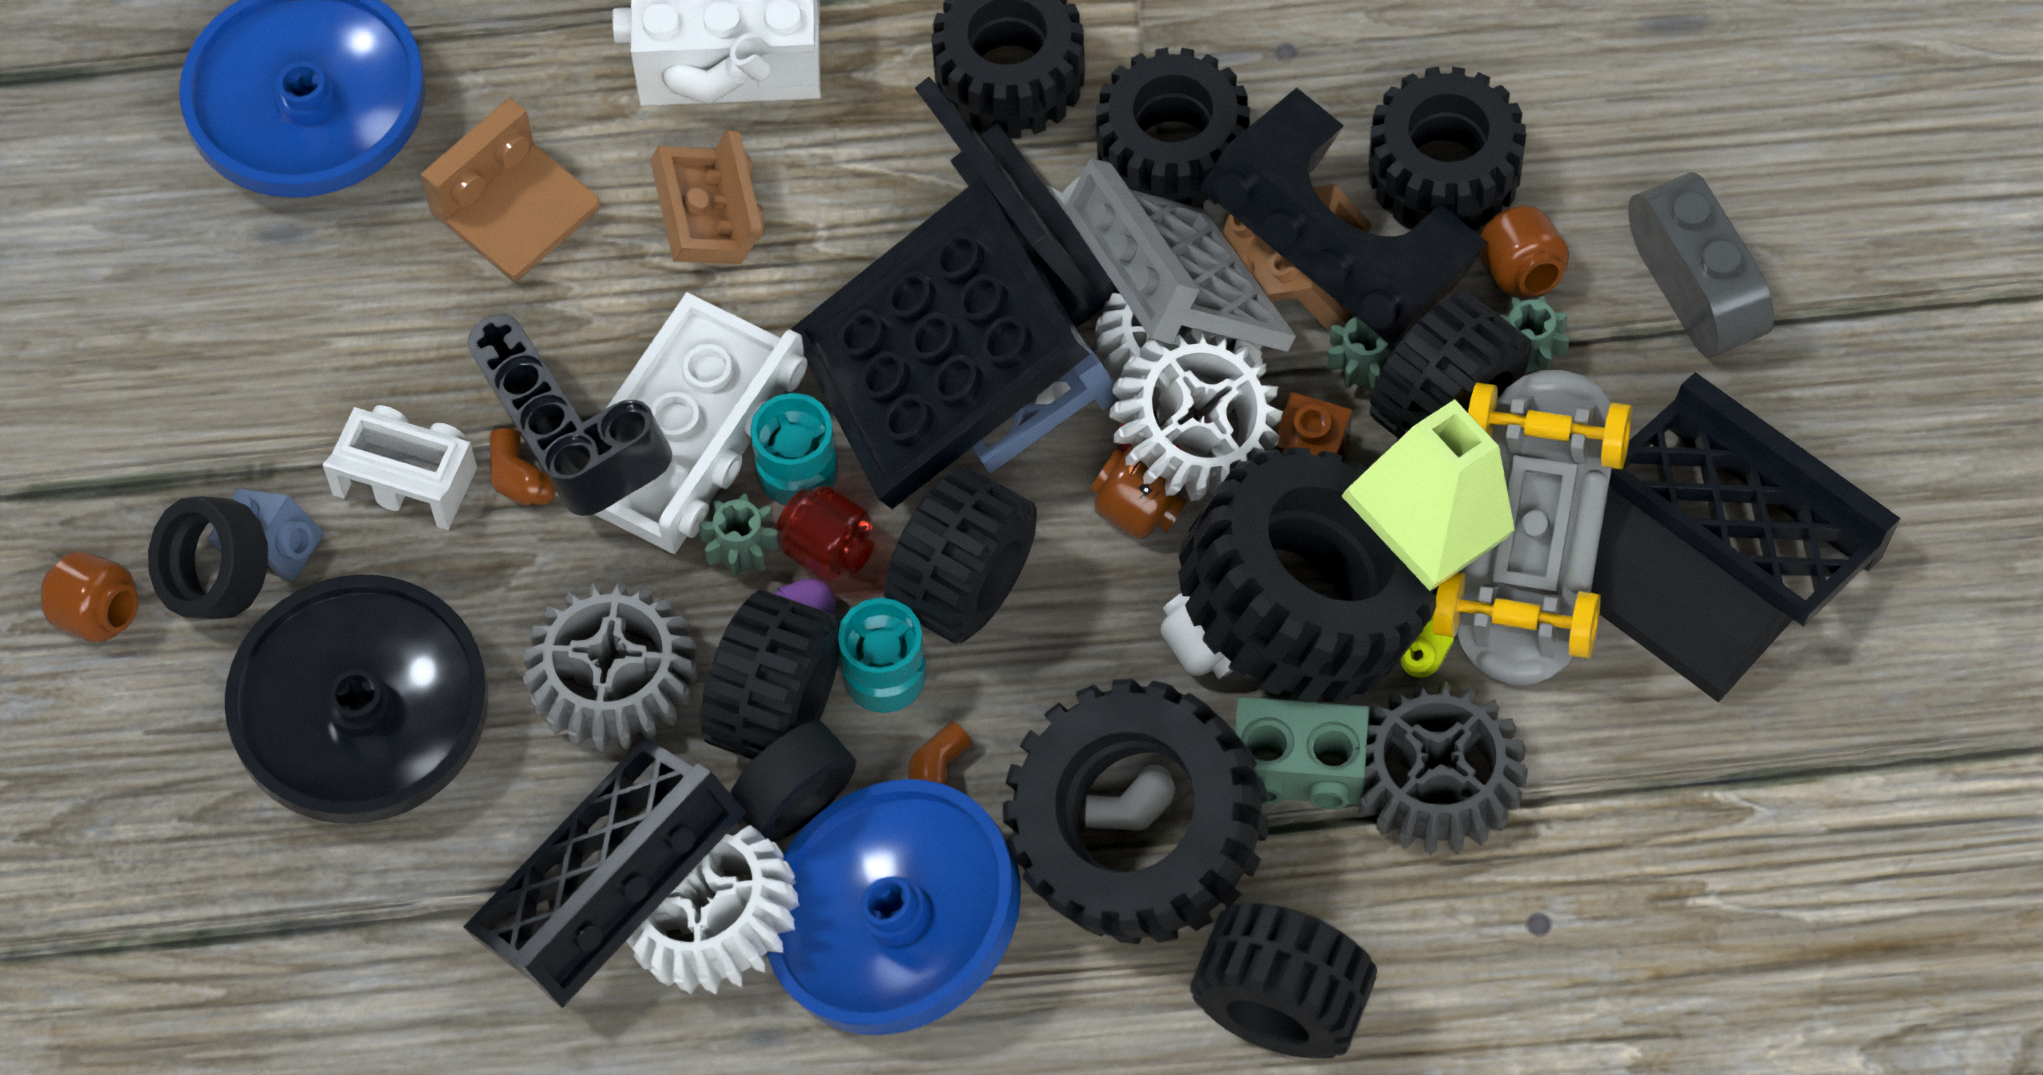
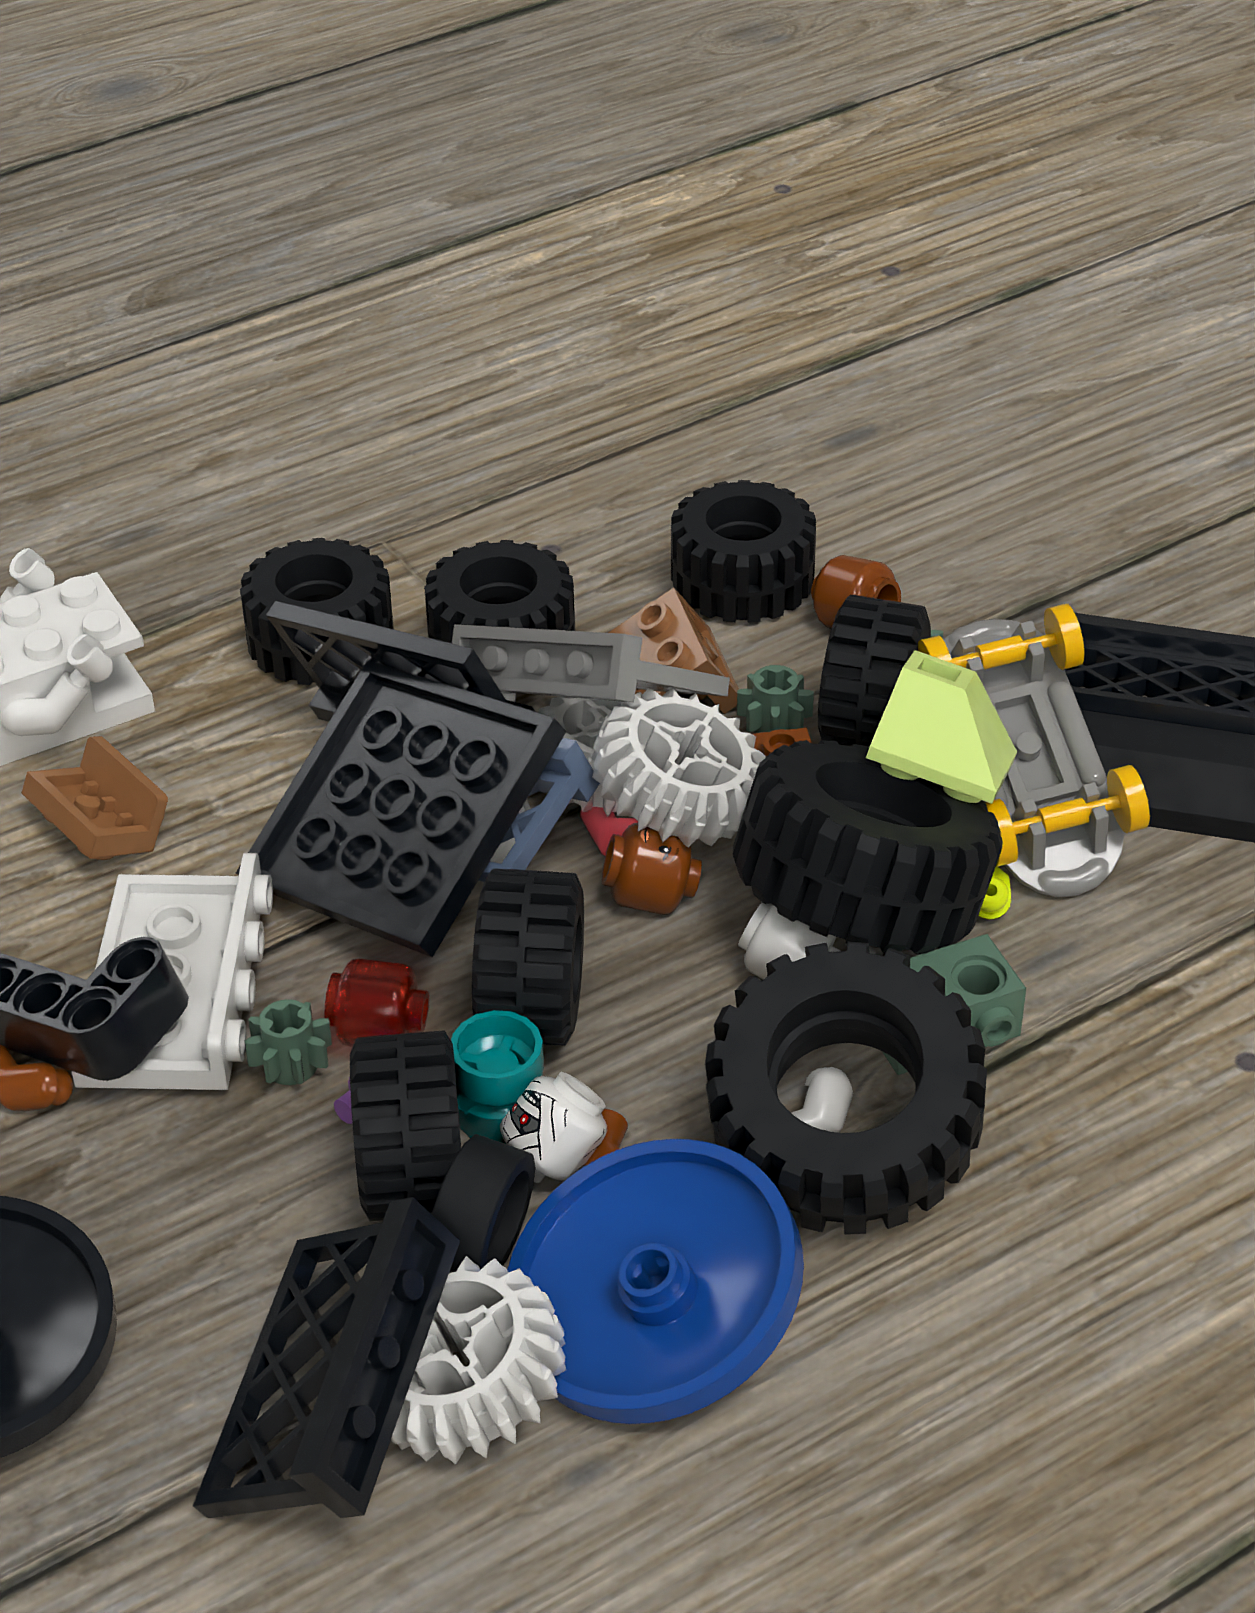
camera: 30 degrees left, 20 degrees down
(656, 677) = (220, 1199): light grey gear -> none
(793, 446) = (301, 945): teal wheel -> none
(899, 726) = (557, 1124): none -> white head
(1284, 980) = (1087, 1168): black tyre -> none
(1375, 277) = (632, 589): black arch -> none
(1462, 728) = (1115, 960): dark grey gear -> none
(1701, 264) = (1008, 548): dark grey brick -> none

